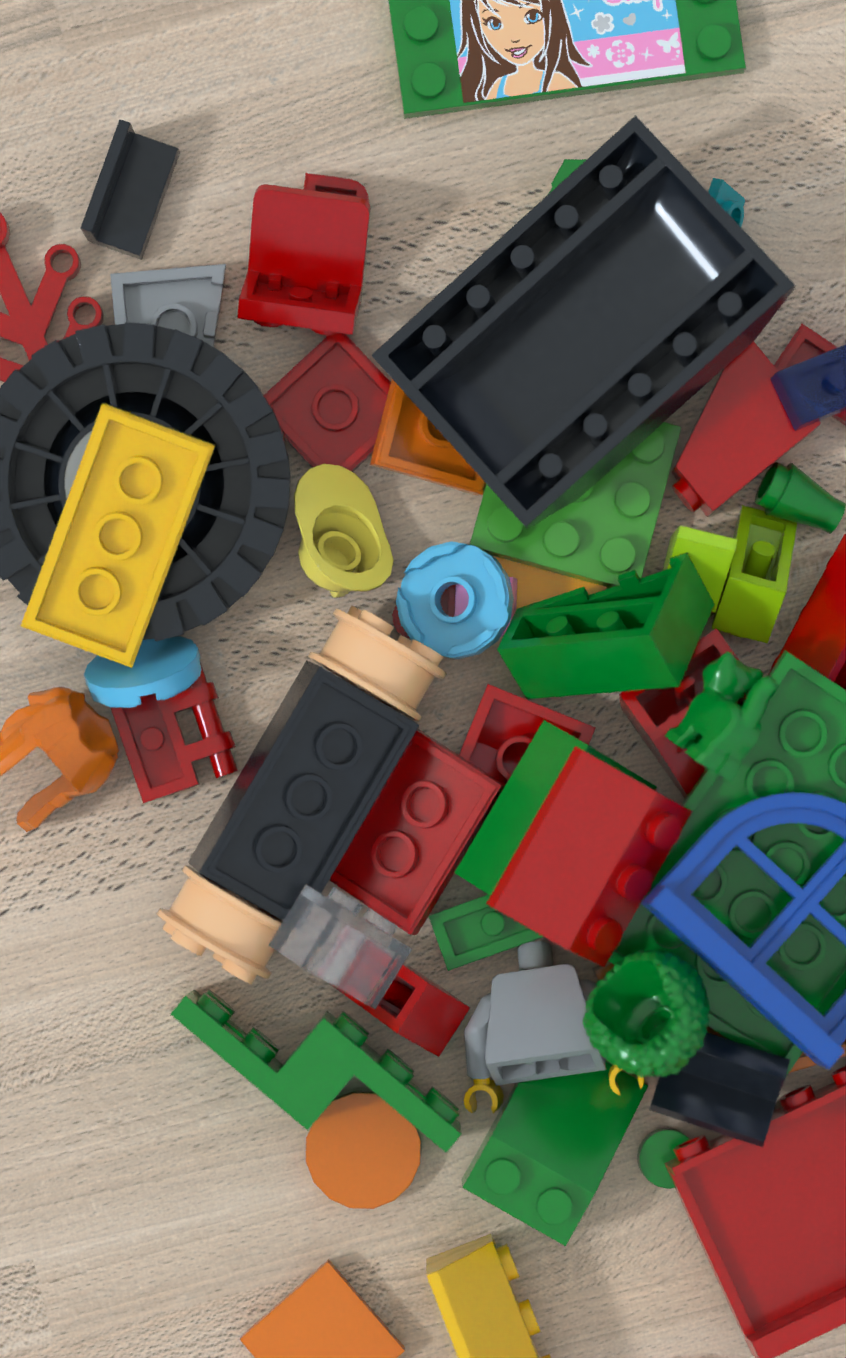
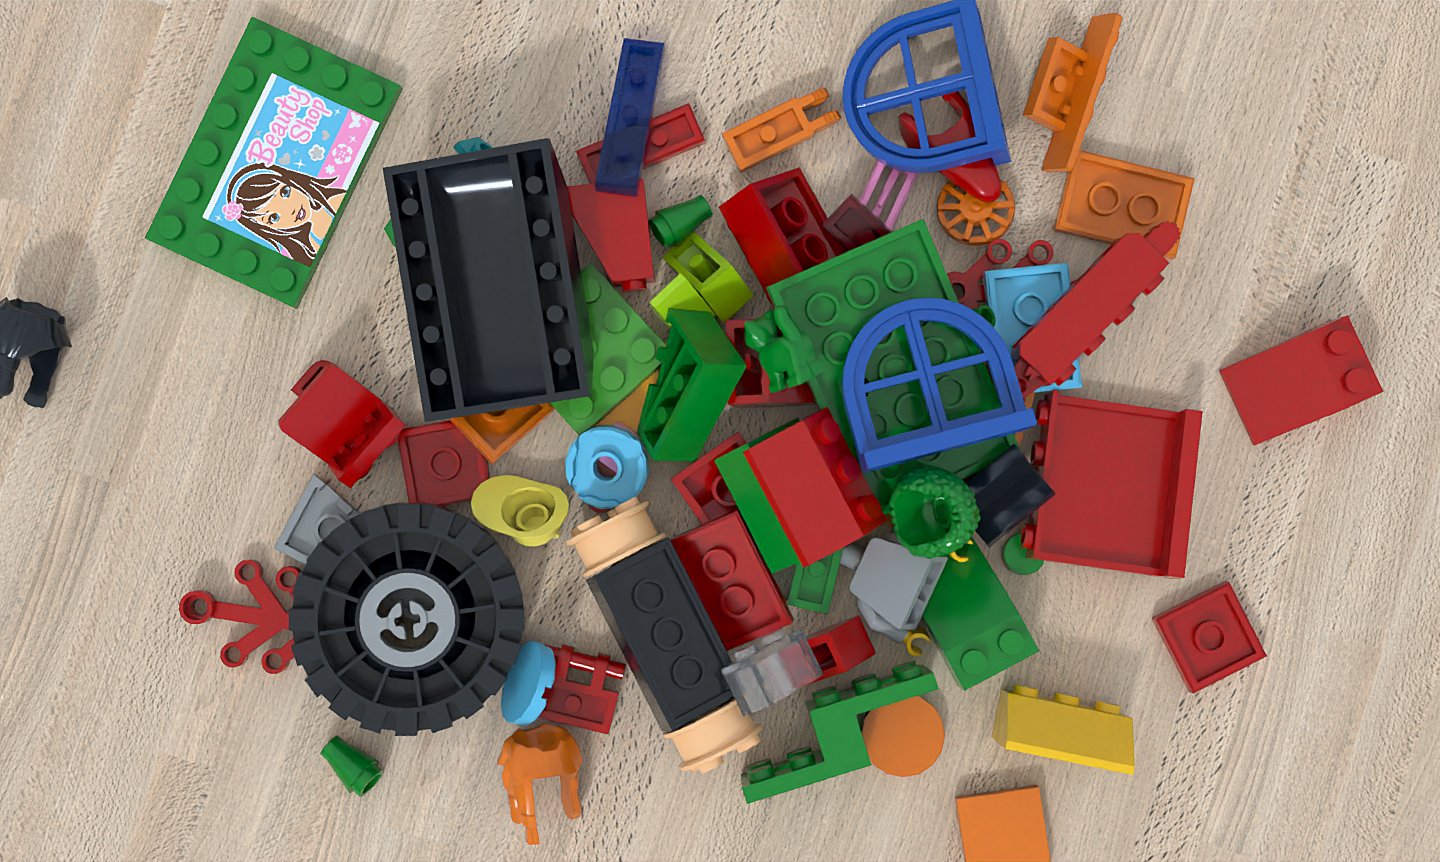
camera: 60 degrees left, 0 degrees up
(117, 535) = (433, 647): yellow tile -> none
(129, 192) = (231, 504): black panel -> none

